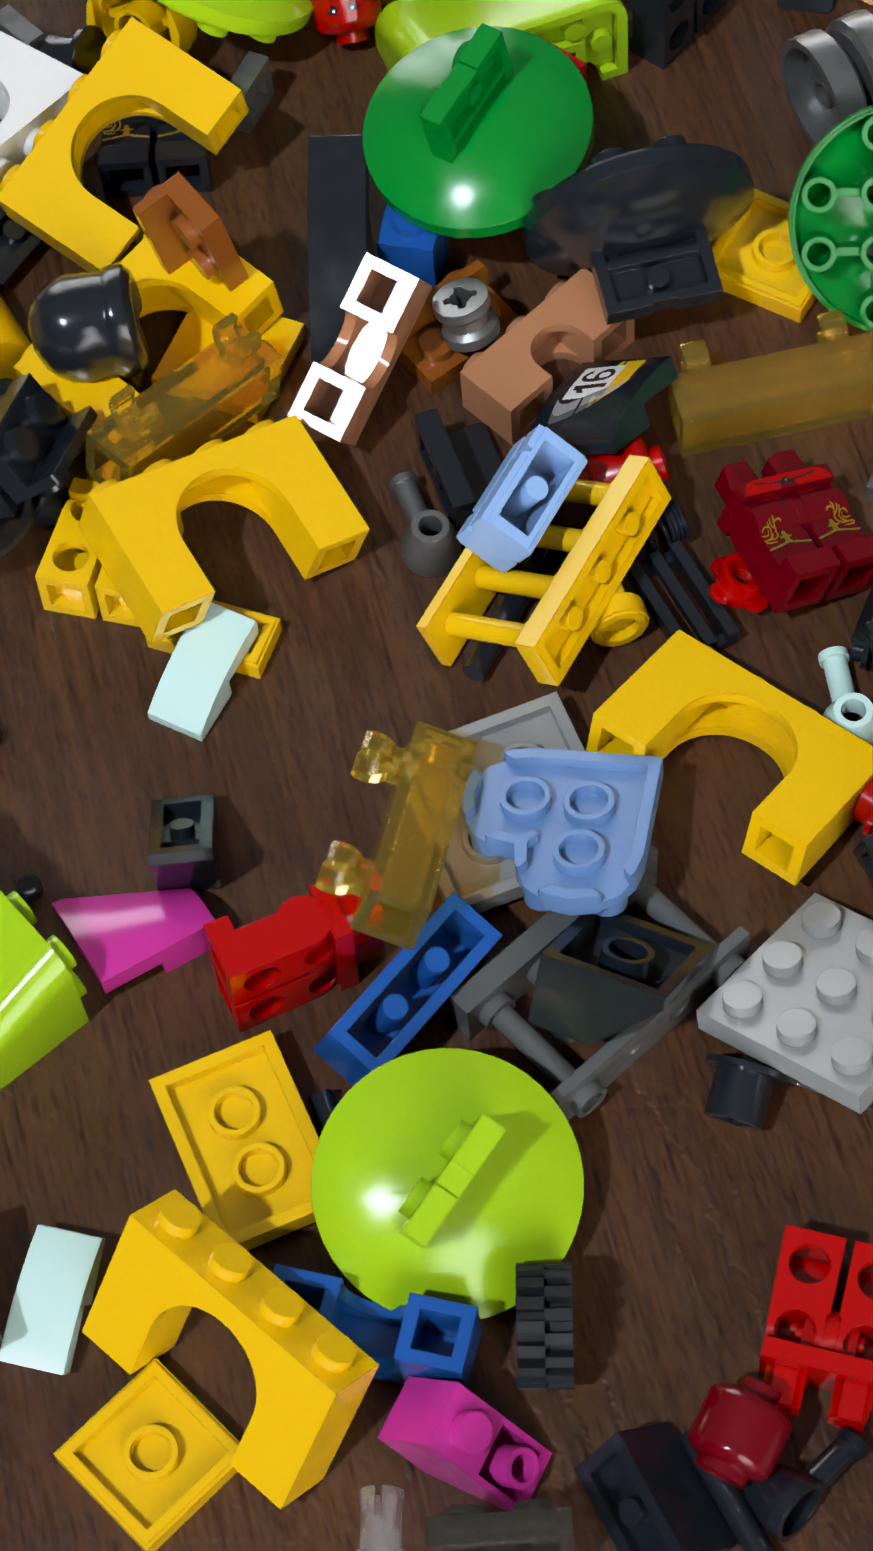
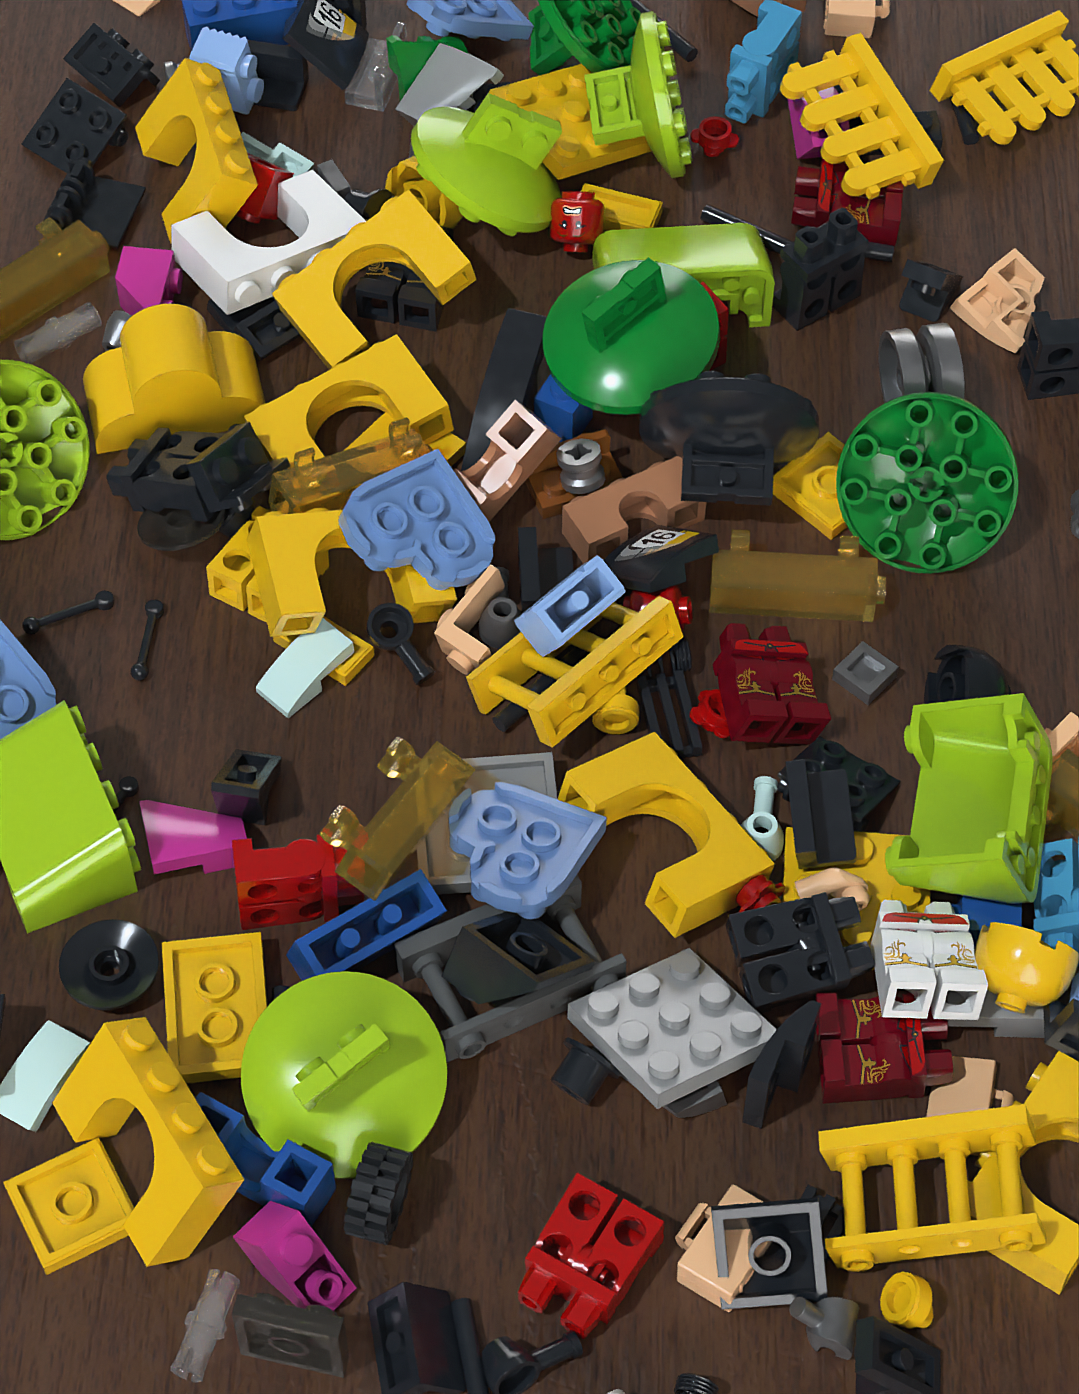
camera: 10 degrees right, 5 degrees down
(85, 1102) = (104, 947): none -> black dish
(91, 327) = (306, 402): black piece -> none
(187, 229) = (393, 352): dark orange bracket -> none
(256, 85) = (488, 266): flat silver tile -> none
(292, 440) = (420, 519): none -> medium blue plate
(309, 579) = (401, 621): none -> black bar
(395, 590) = (452, 629): none -> light nougat bracket
(739, 1431) = (490, 1307): dark red head -> none

